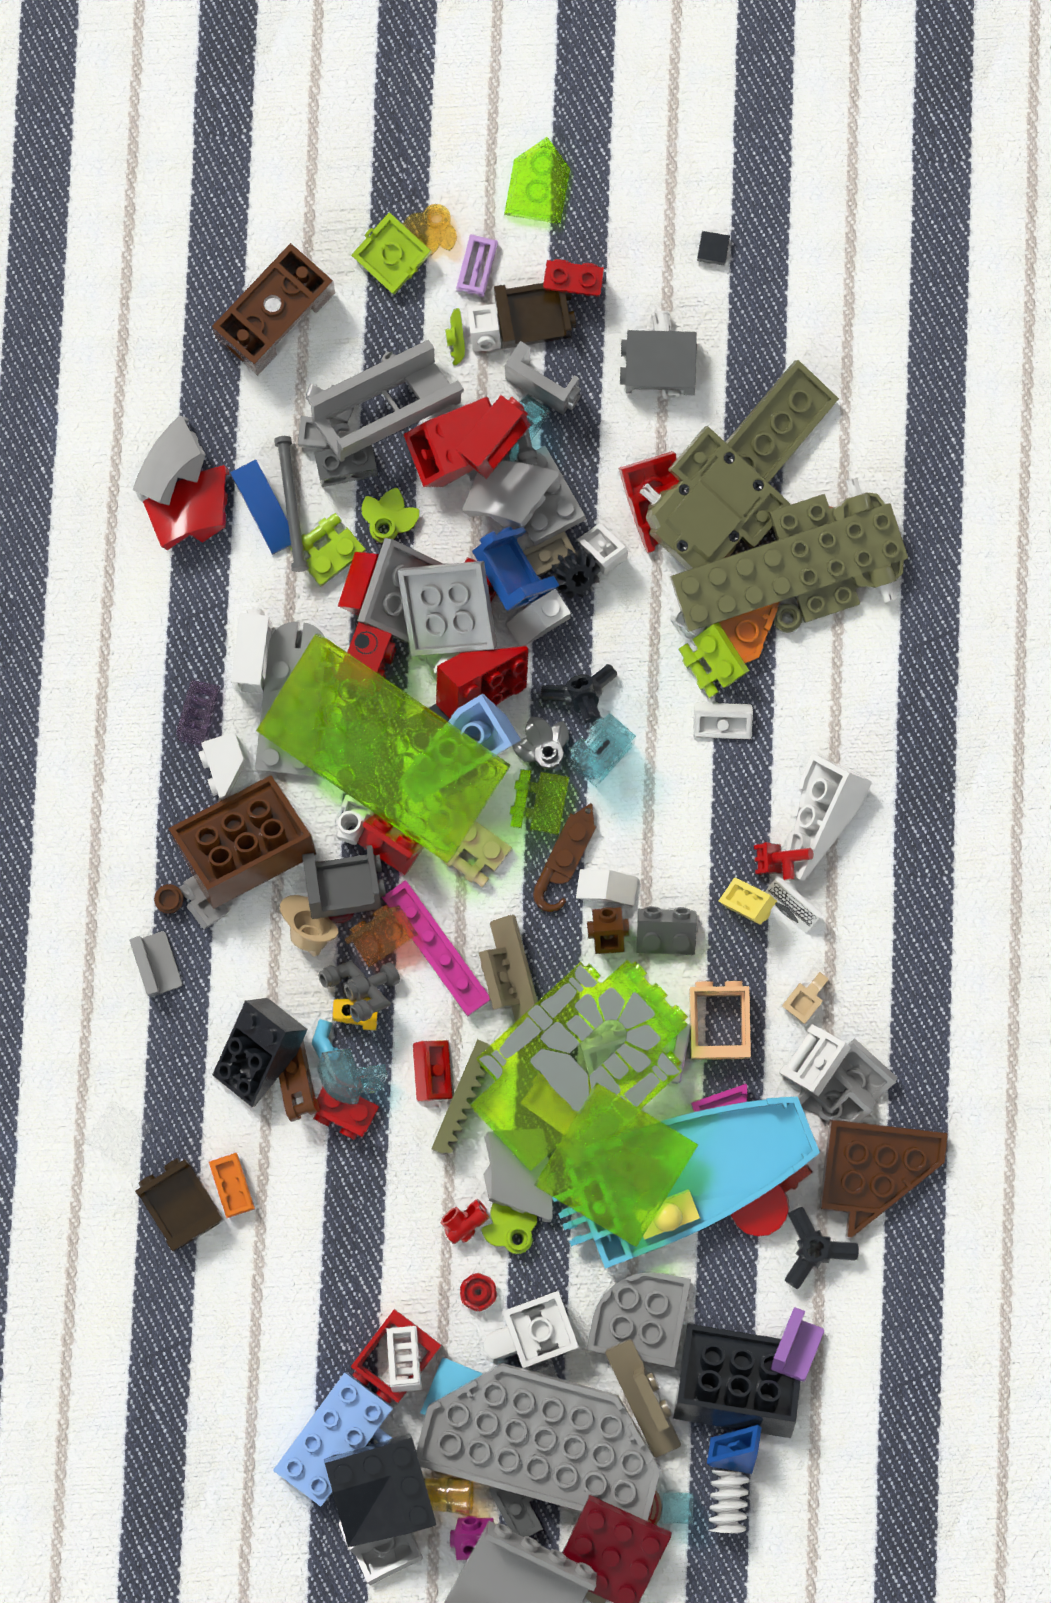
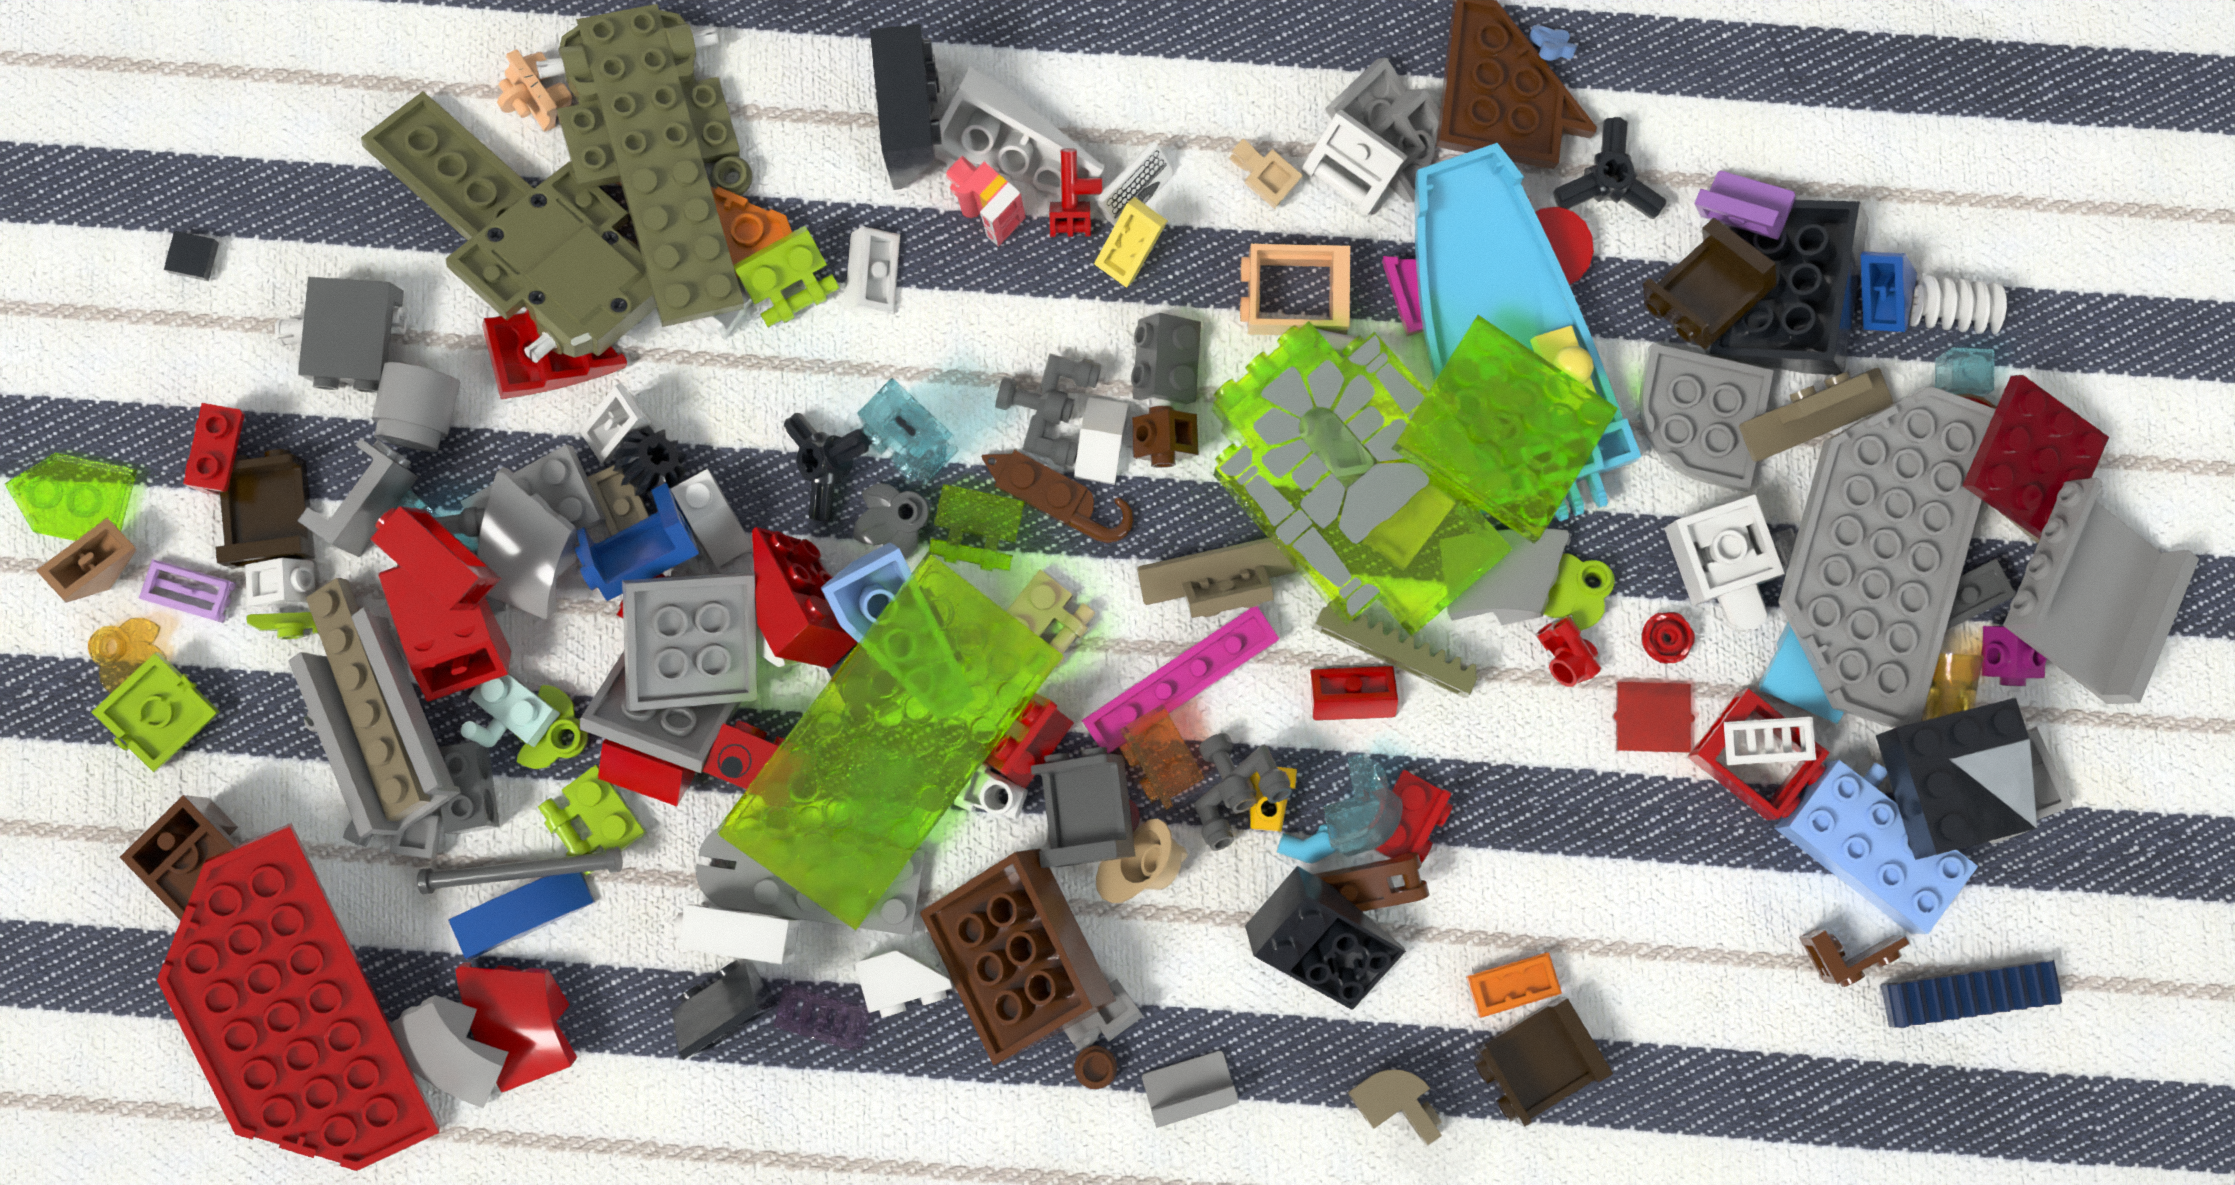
camera: 90 degrees left, 0 degrees up
(157, 1104) = (1392, 1091): none -> dark tan brick
(191, 361) = (288, 1011): none -> red plate
(201, 643) = (720, 1009): none -> black slope
(233, 1510) = (1971, 993): none -> dark blue gear
(259, 1405) = (1827, 956): none -> reddish brown bracket
(398, 394) = (364, 701): none -> dark tan plate
(401, 492) = (513, 708): none -> light aqua plate
(422, 1284) = (1653, 717): none -> clear red piece
(491, 201) = (89, 563): none -> medium nougat slope
(607, 410) = (414, 406): none -> light grey piece
(629, 850) = (1051, 405): none -> dark grey piece
(732, 1319) = (1711, 286): none -> dark brown panel
(778, 798) = (987, 194): none -> coral hips
(833, 483) = (527, 95): none -> light nougat hips
(842, 734) = (905, 100): none -> black slope
(914, 1205) = (1552, 43): none -> medium blue piece

